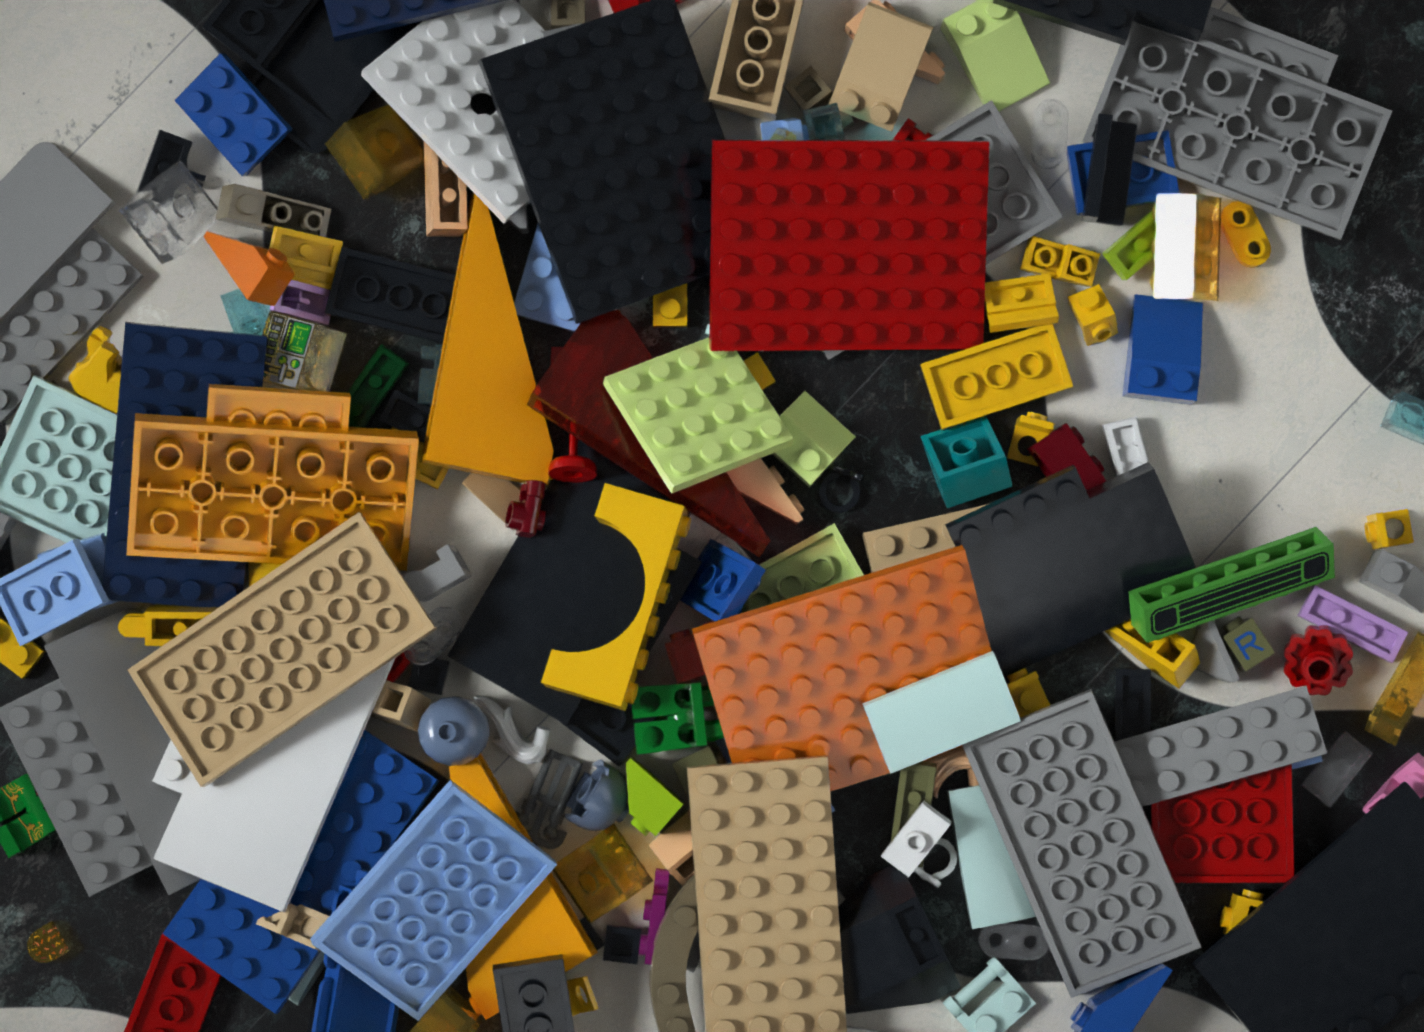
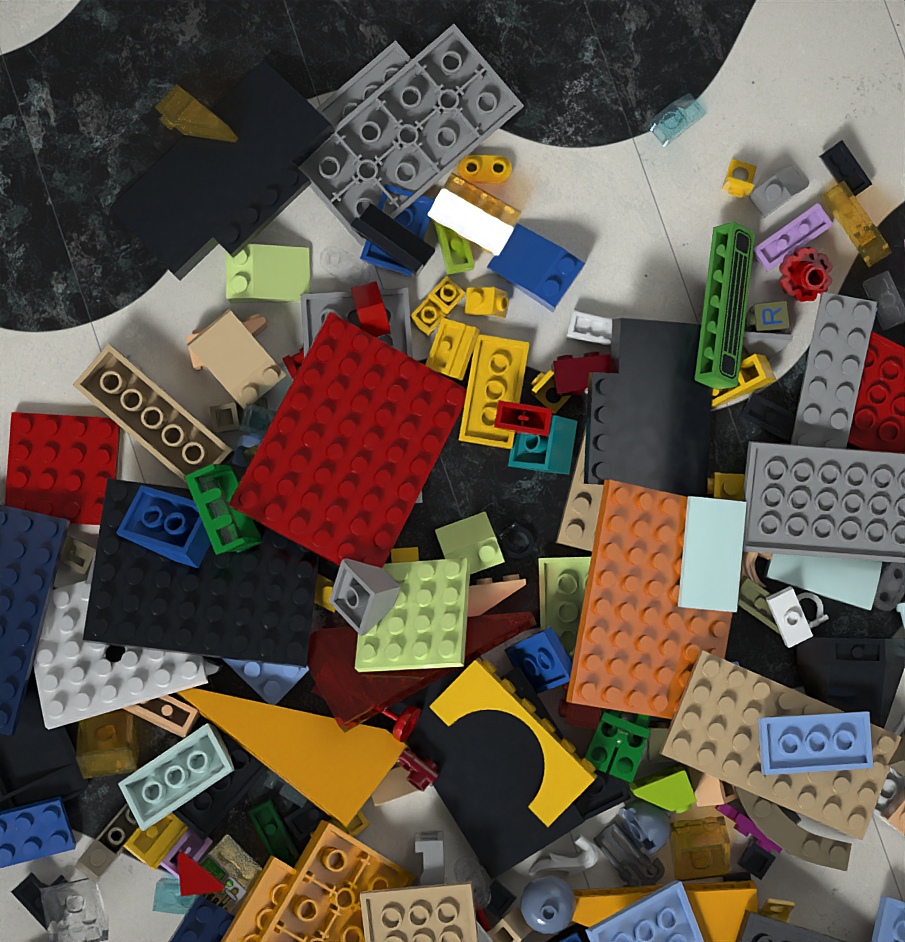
camera: 65 degrees left, 0 degrees up
(257, 271) = (146, 877): orange slope -> none
(281, 322) = (195, 878): none -> red slope
(382, 244) = (176, 776): none -> light aqua slope
(656, 90) = (166, 526): none -> blue slope
(686, 152) = (225, 527): none -> green window
(692, 343) = (363, 594): none -> light grey slope
(790, 935) = (815, 743): none -> light blue plate
(982, 421) = (523, 418): none -> red slope
(1016, 187) = (370, 309): none -> red slope

